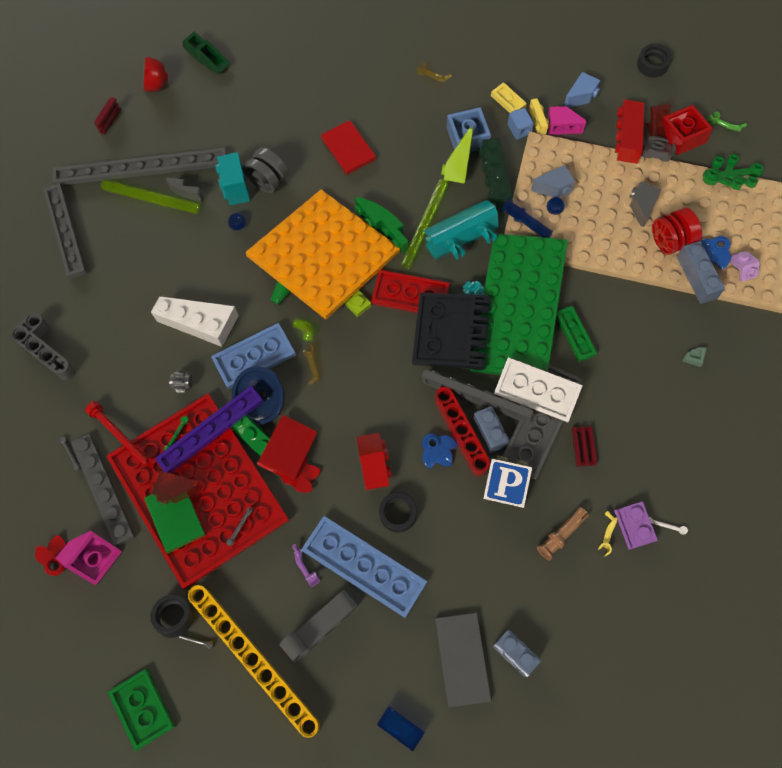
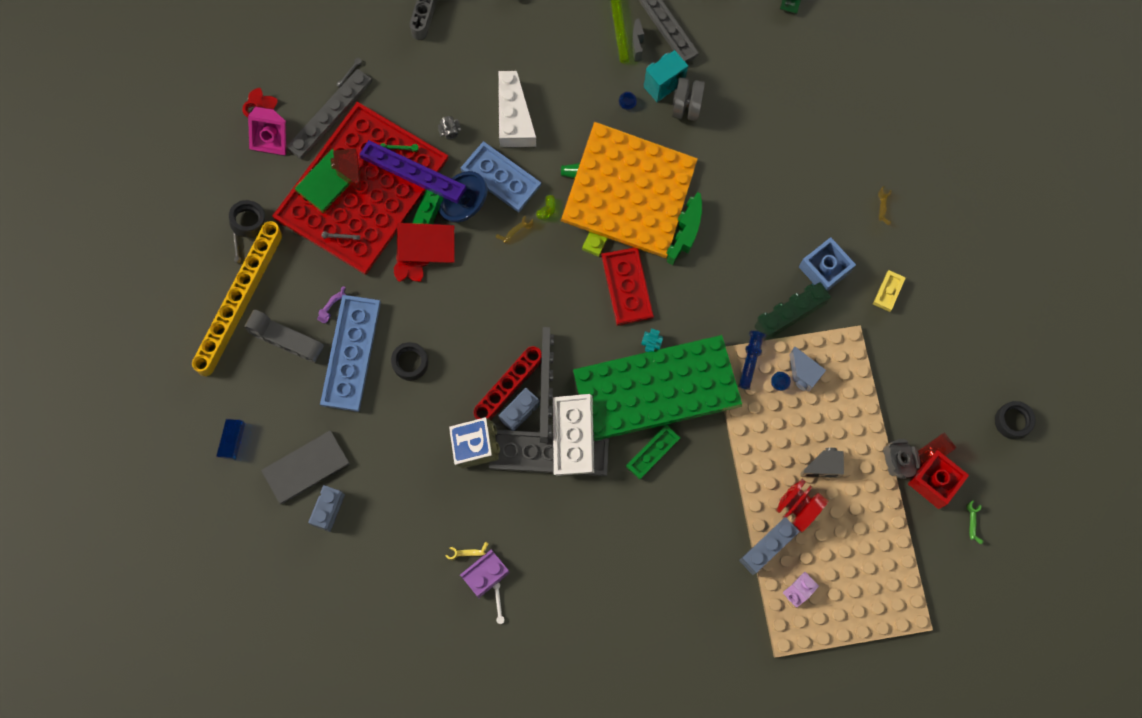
camera: 60 degrees right, 5 degrees up
(95, 411) = (393, 73): red piece -> none
(141, 709) = (168, 232): green tile -> none
(348, 147) = (757, 163): red tile -> none
(372, 458) = (443, 318): red brick -> none
(424, 224) = (707, 268): clear neon green axle -> none
(440, 452) = (479, 375): blue plate -> none
(447, 330) = (600, 332): black hinge -> none
(457, 163) = (782, 270): lime slope -> none
(462, 229) = (713, 303): teal piece -> none
(520, 123) = (864, 312): medium blue brick -> none
(537, 115) = (887, 324): light yellow plate -> none
(557, 539) = (441, 508): medium nougat pin -> none
(564, 121) = (888, 354): dark pink slope -> none
(582, 91) = (936, 359): medium blue slope -> none
(582, 431) = (557, 493): dark red tile -> none
(629, 131) = (907, 423): red brick -> none
(695, 356) = (682, 575): sand green tile -> none
(712, 175) = (906, 544): green plant -> none
(718, 254) = (800, 554): blue plate -> none

